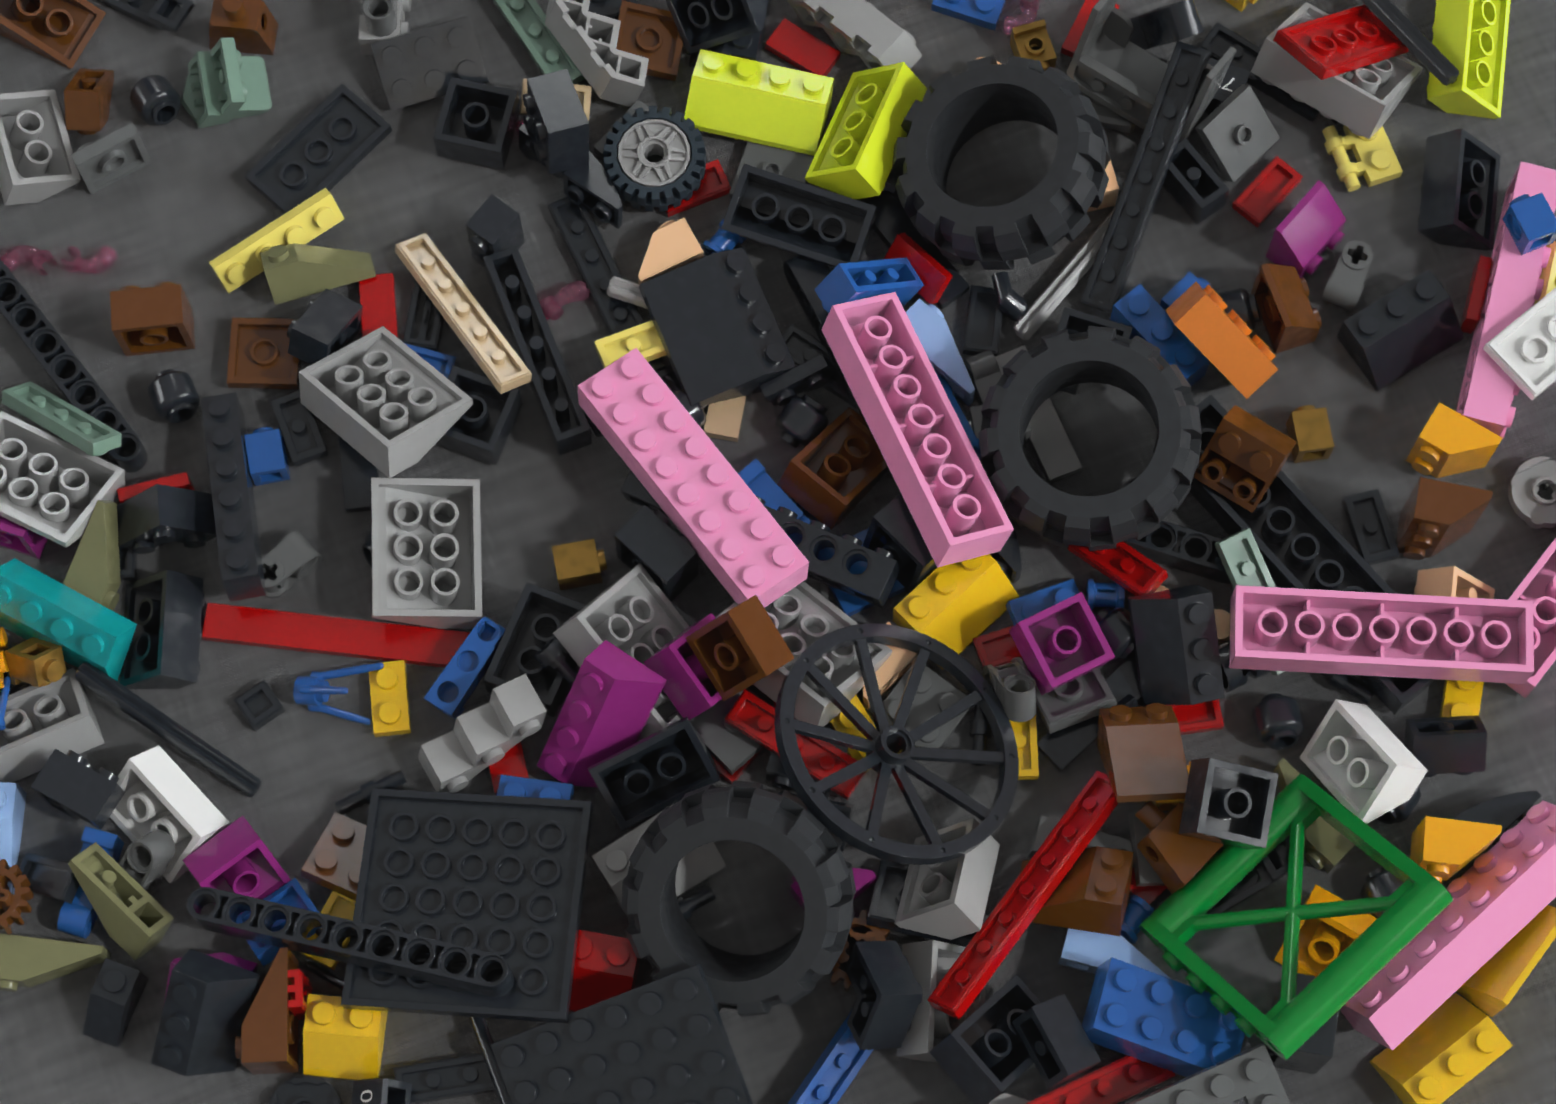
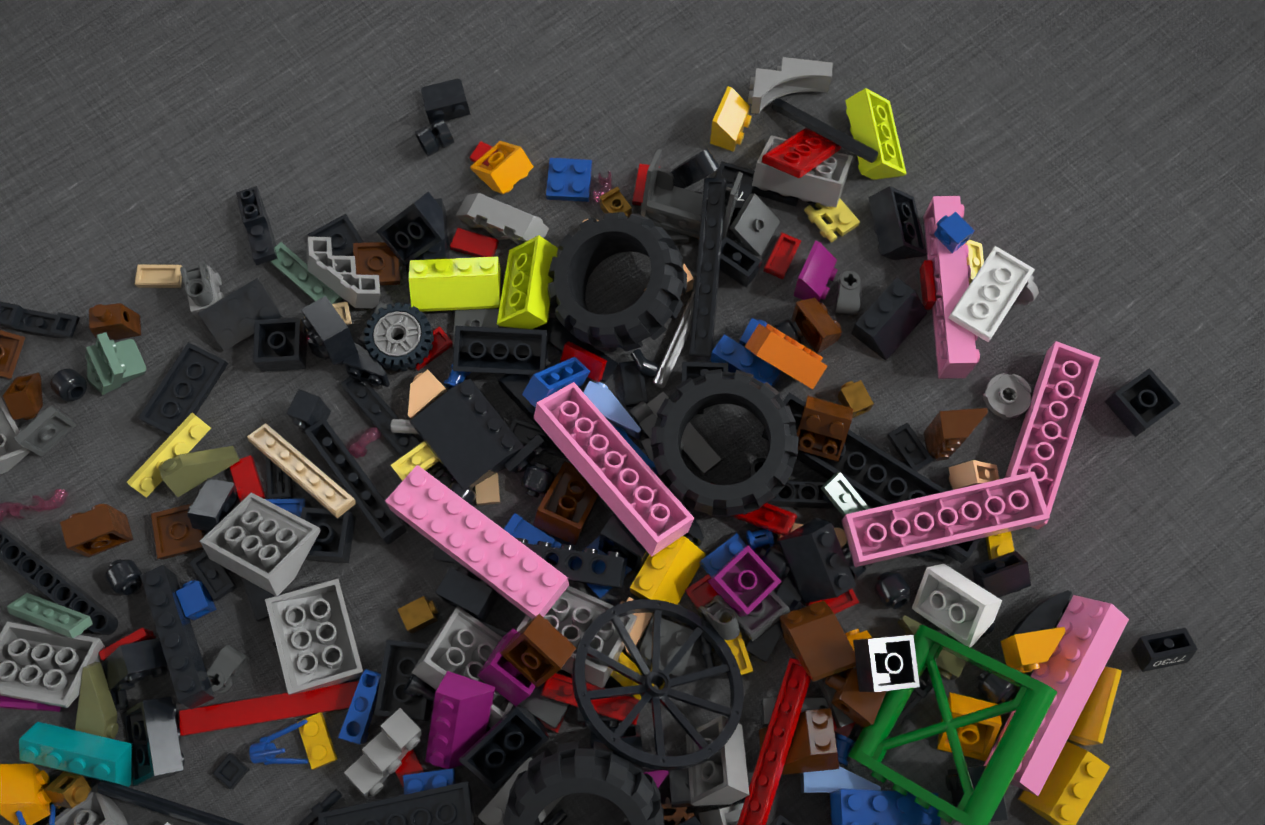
camera: 15 degrees left, 0 degrees up
(1451, 445) = (943, 381): light orange slope -> none

